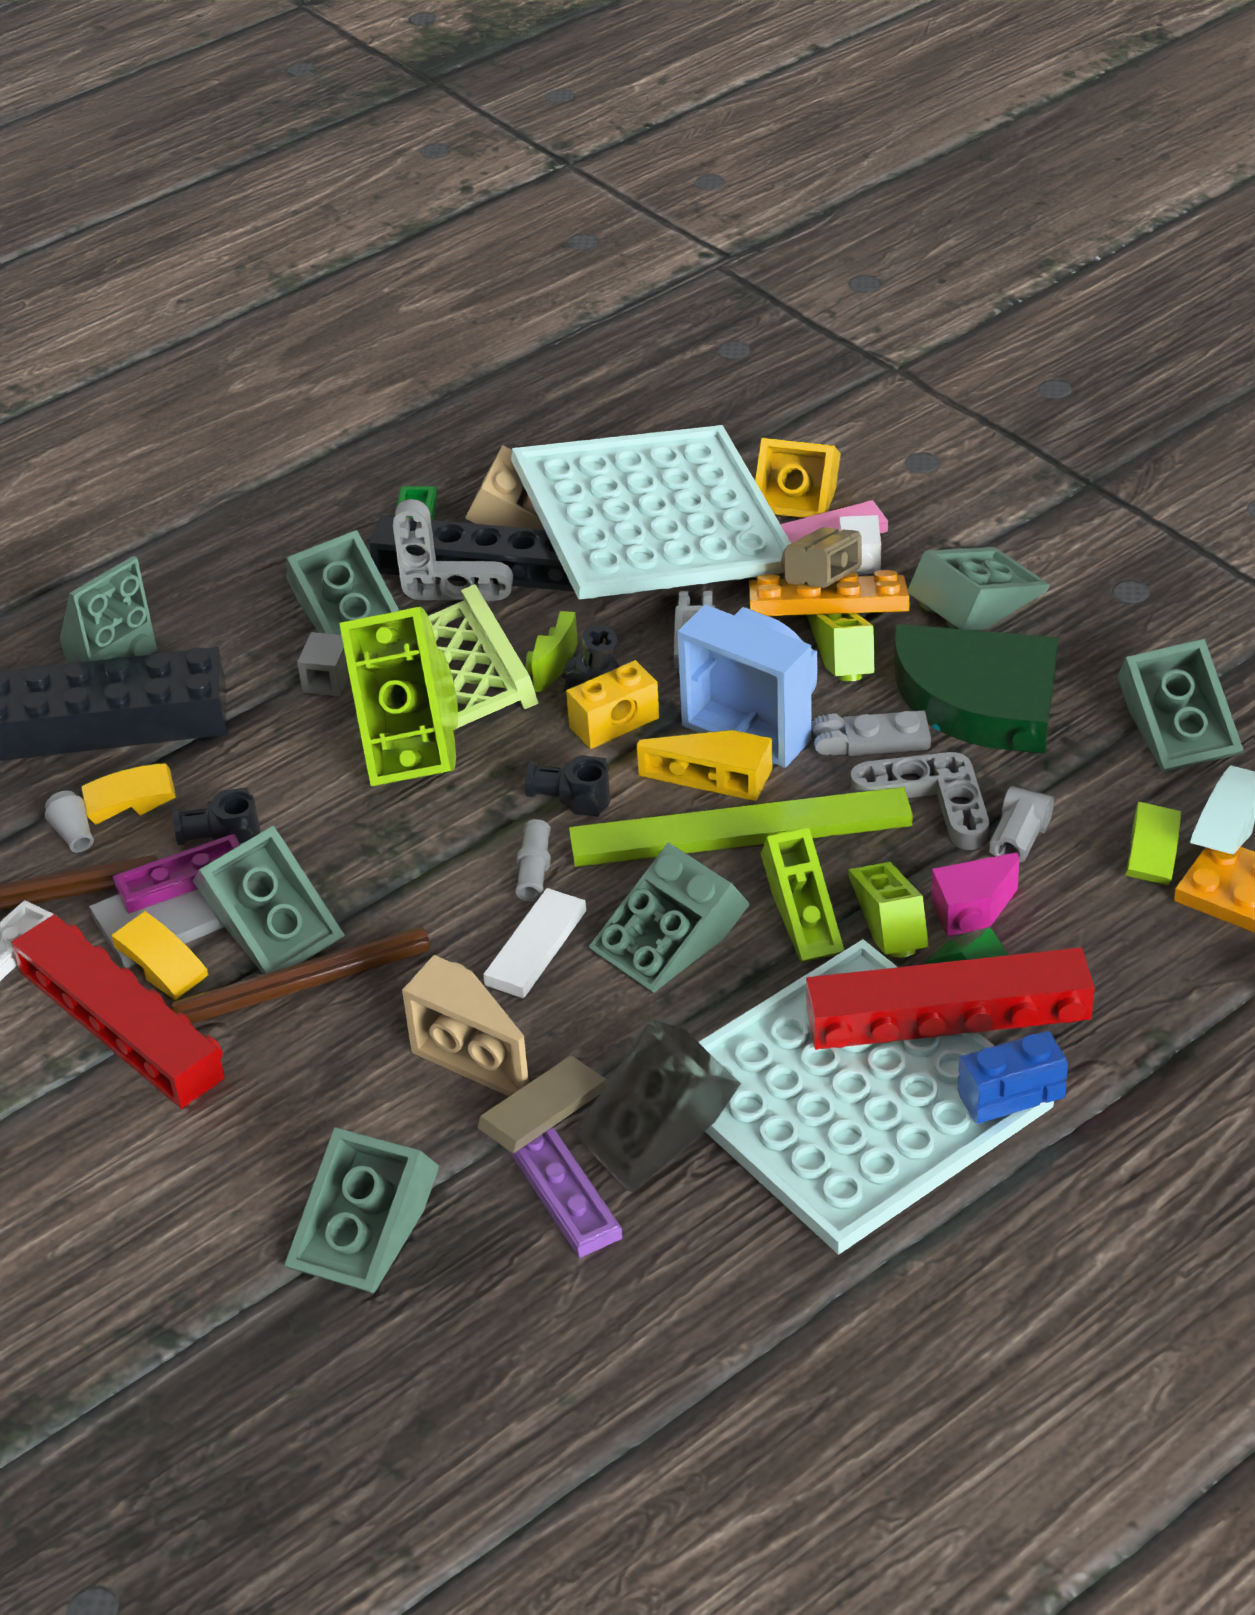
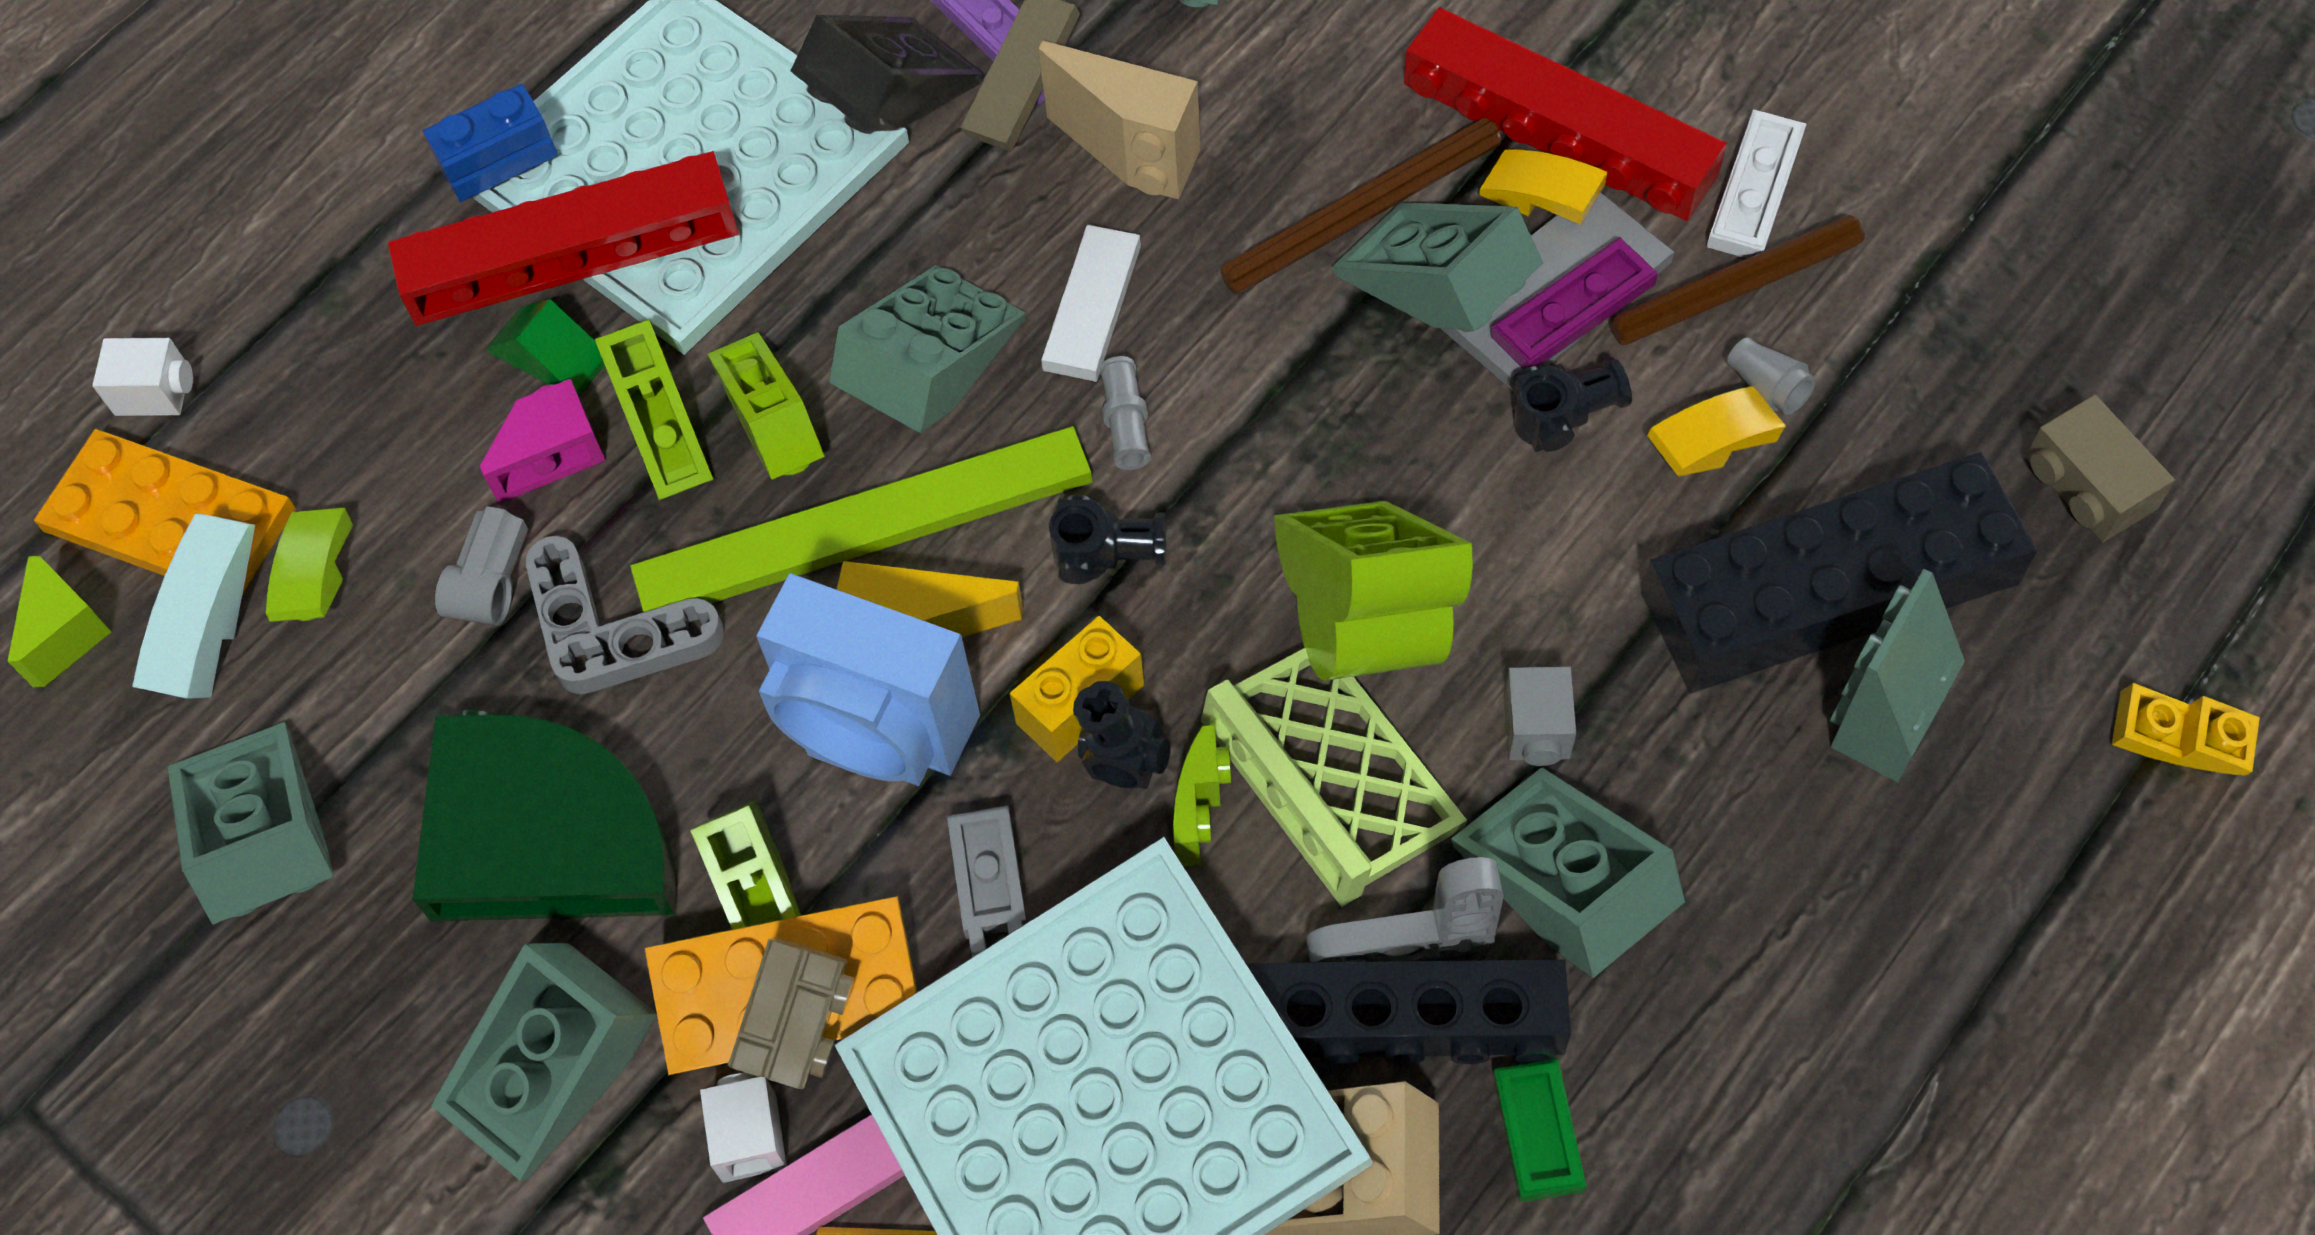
camera: 170 degrees right, 20 degrees up
(871, 733) = (690, 724): light grey hinge -> none

